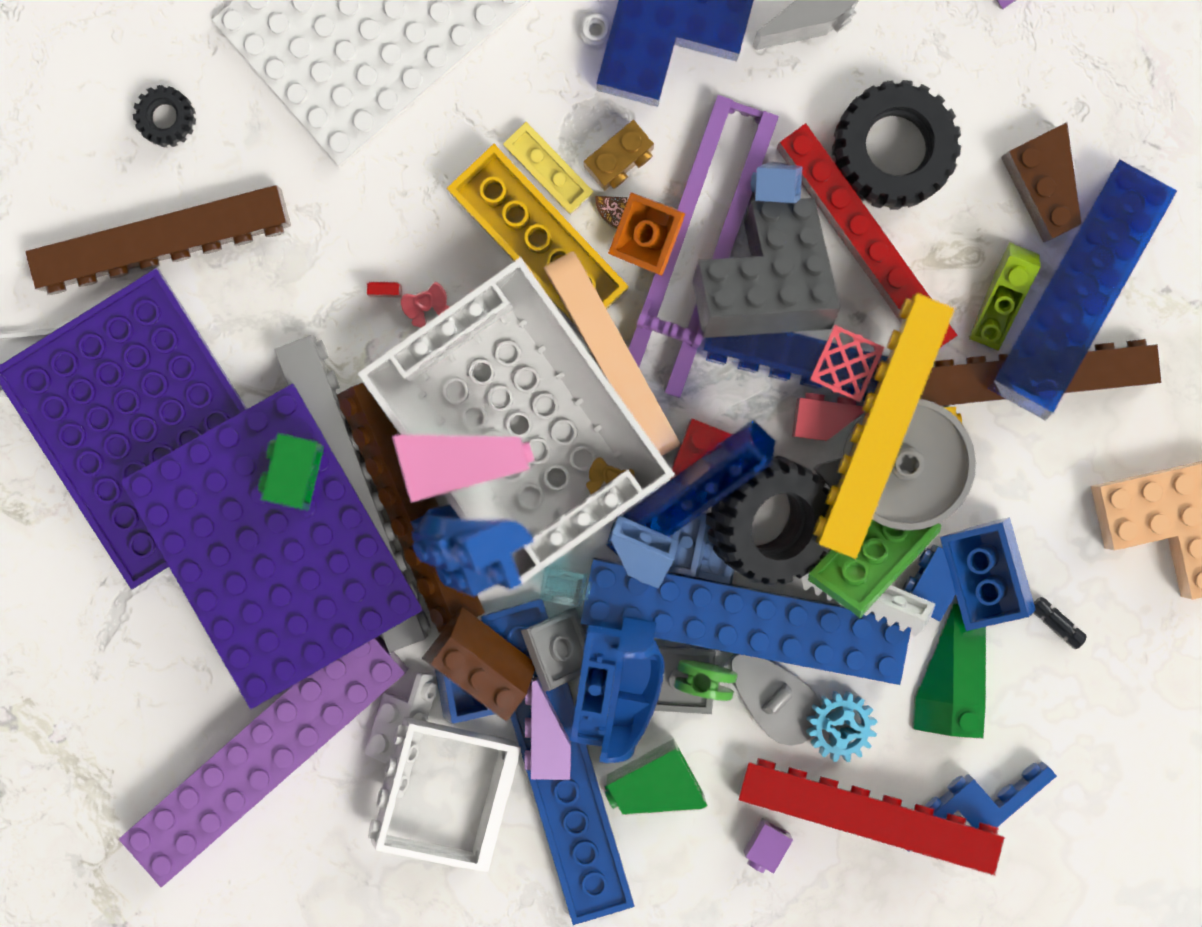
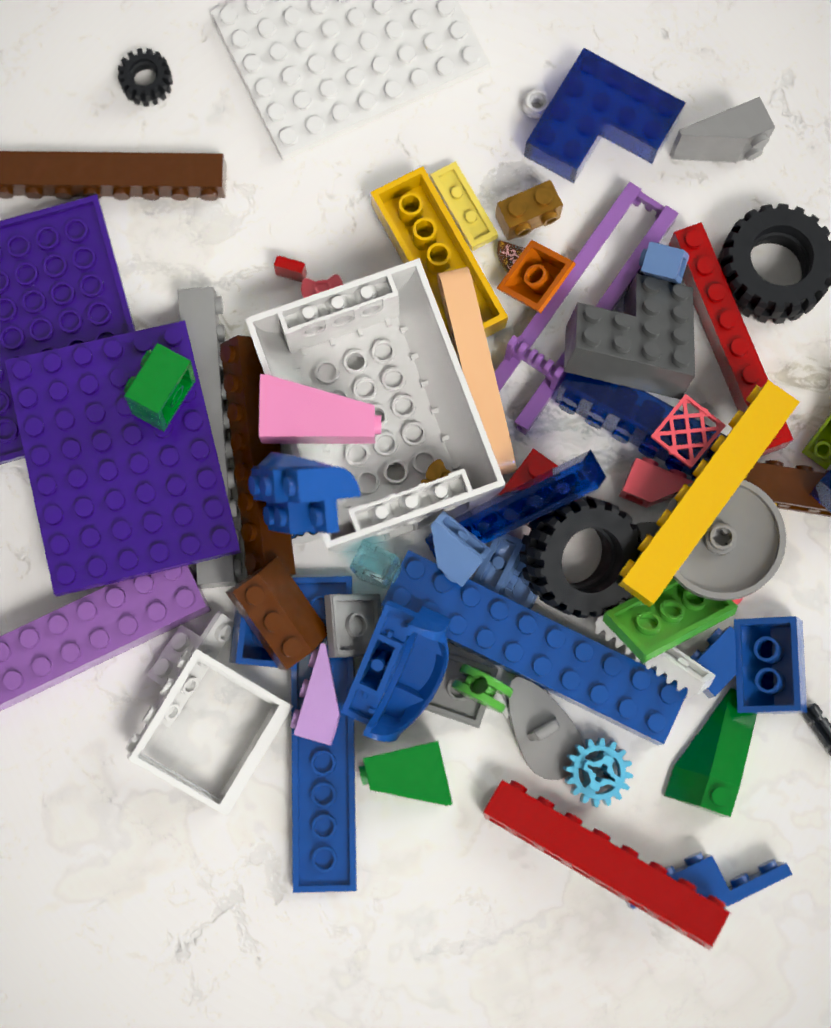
camera: 10 degrees right, 10 degrees down
(767, 847) = (498, 869): medium lavender brick -> none

